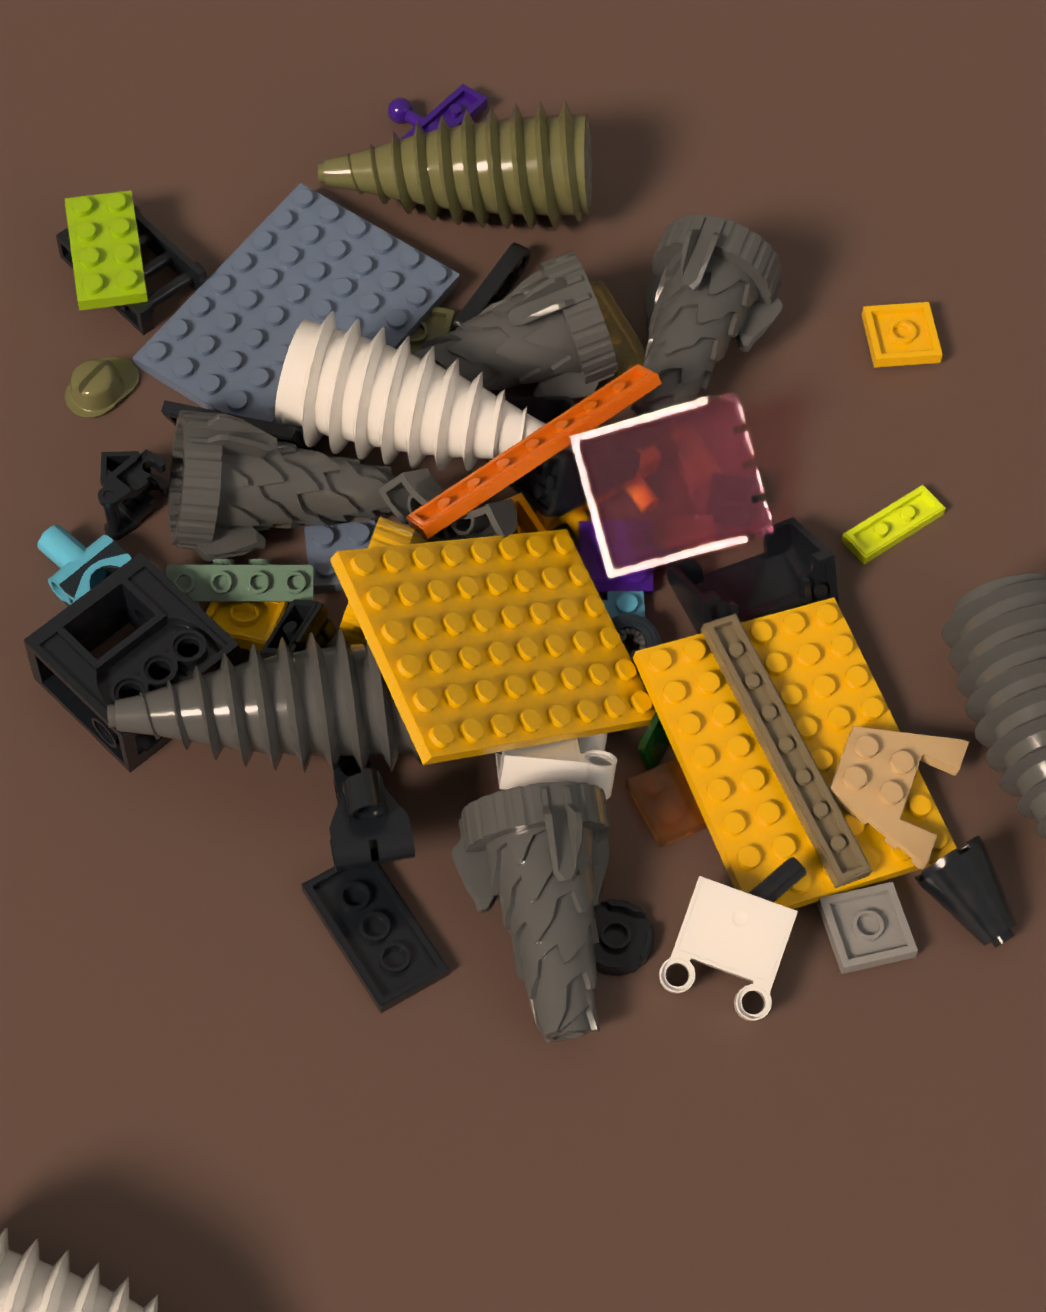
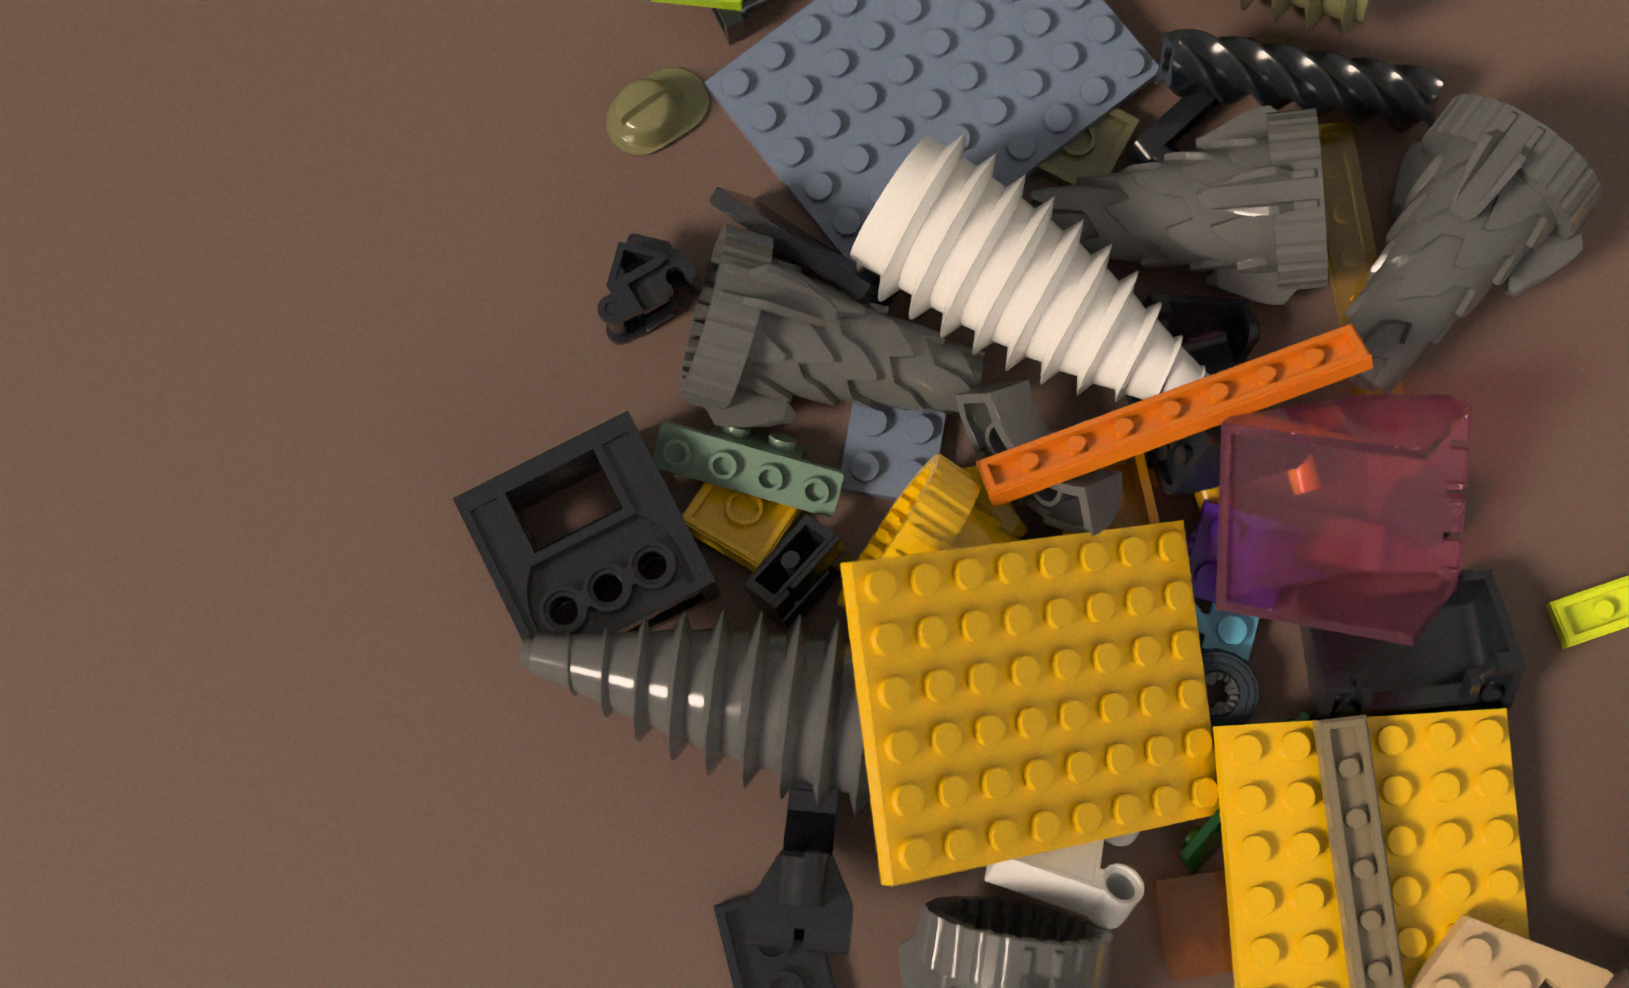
camera: 25 degrees right, 20 degrees up
(79, 566) = (564, 380): medium azure connector -> none
(519, 251) = (1284, 74): none -> black piece

